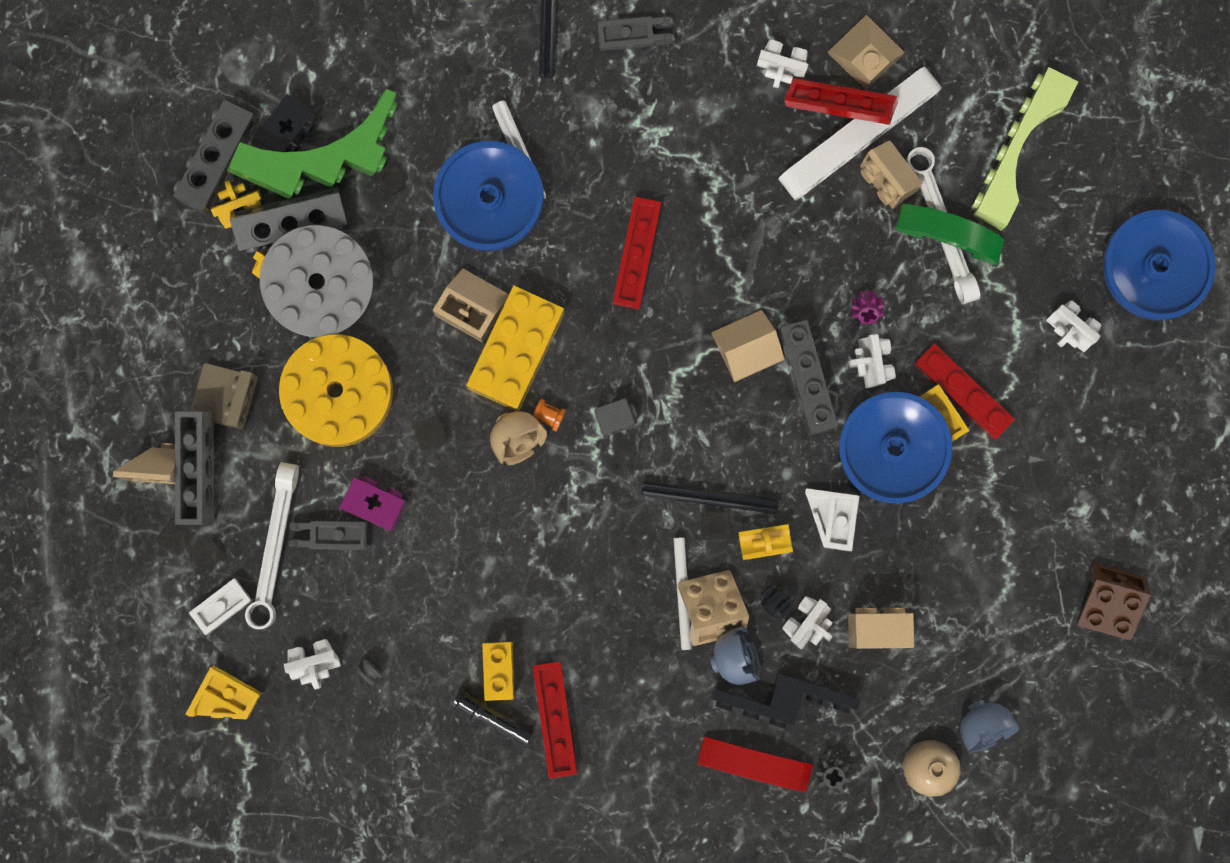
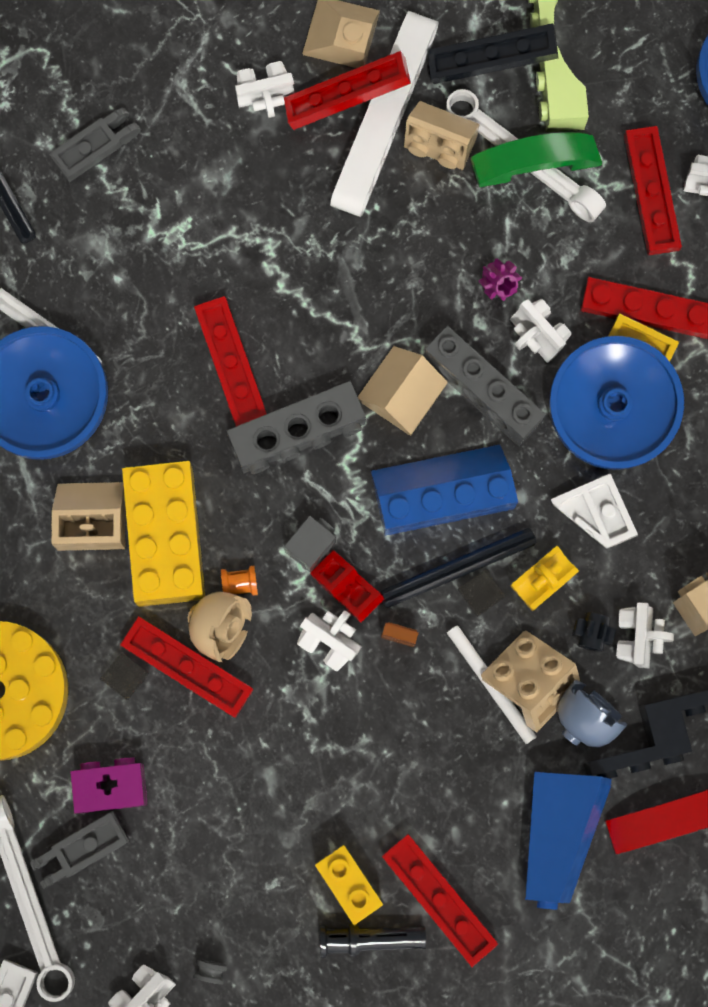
camera: 30 degrees left, 5 degrees down
(476, 453) = (187, 667): none -> red plate
(592, 490) = (317, 630): none -> white hips
(615, 314) = (339, 400): none -> dark grey brick
(623, 463) = (347, 586): none -> red slope
(639, 519) = (400, 634): none -> dark orange tile
(666, 726) = (561, 833): none -> blue slope
(733, 435) = (444, 489): none -> blue slope
(966, 136) = (493, 53): none -> black plate
(1021, 307) = (652, 190): none -> red plate

